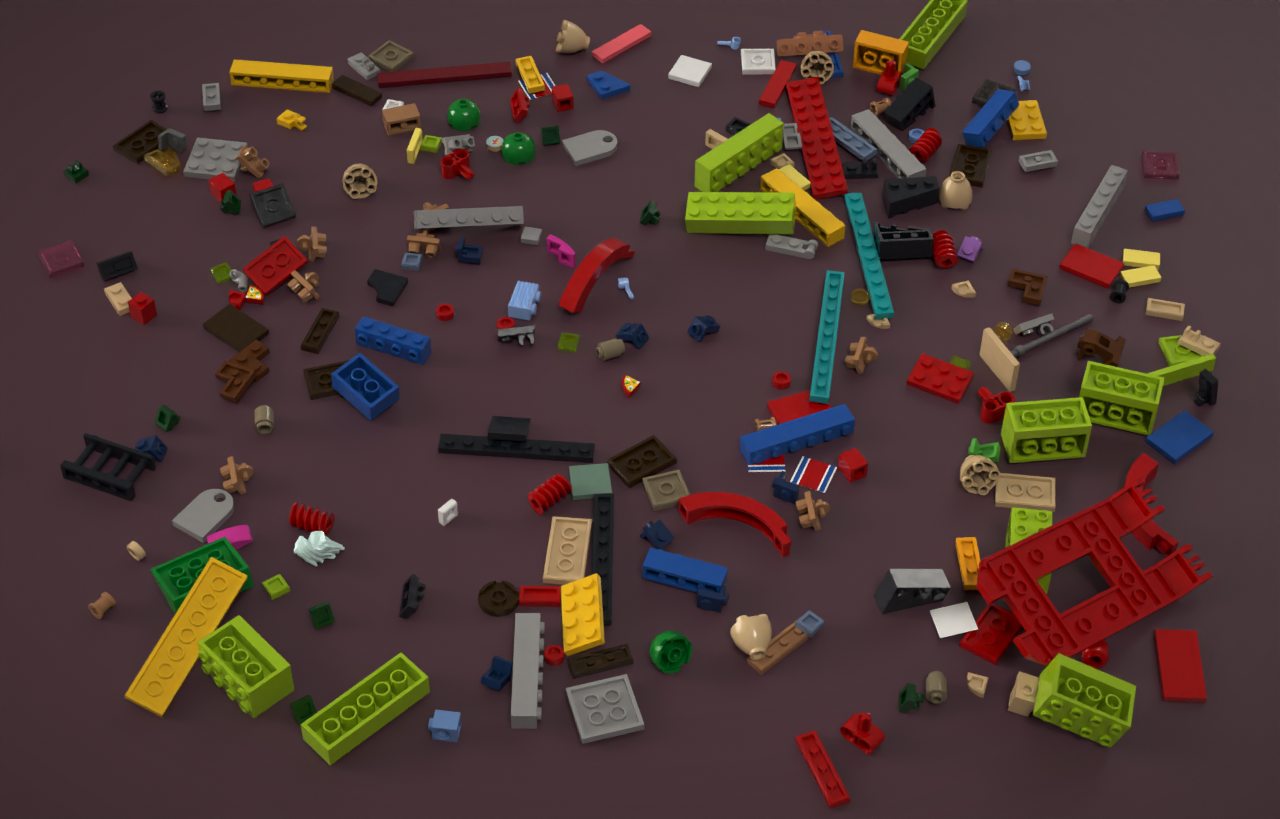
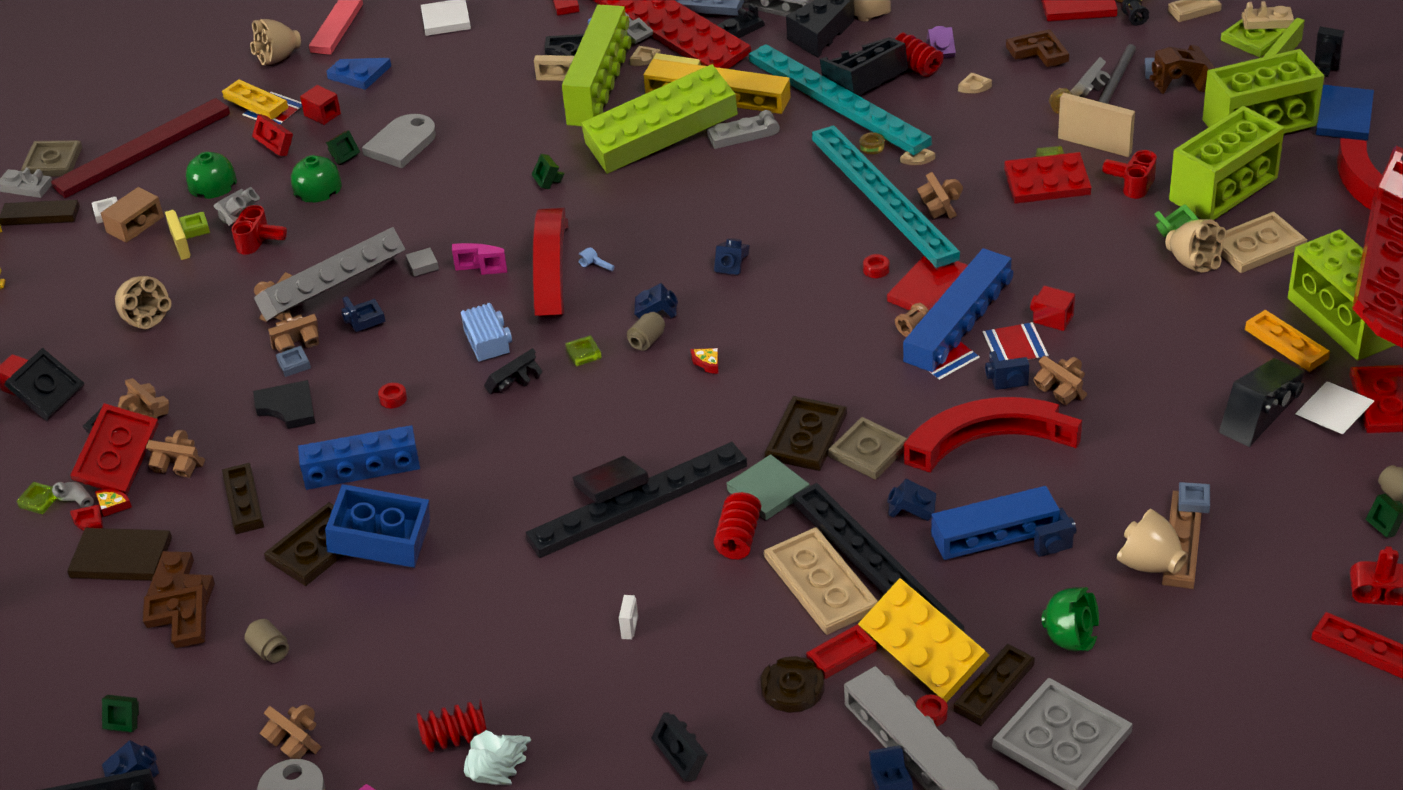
camera: 30 degrees left, 5 degrees down
(494, 143) = (278, 188): tan tile -> none
(505, 322) = (482, 370): red tile -> none

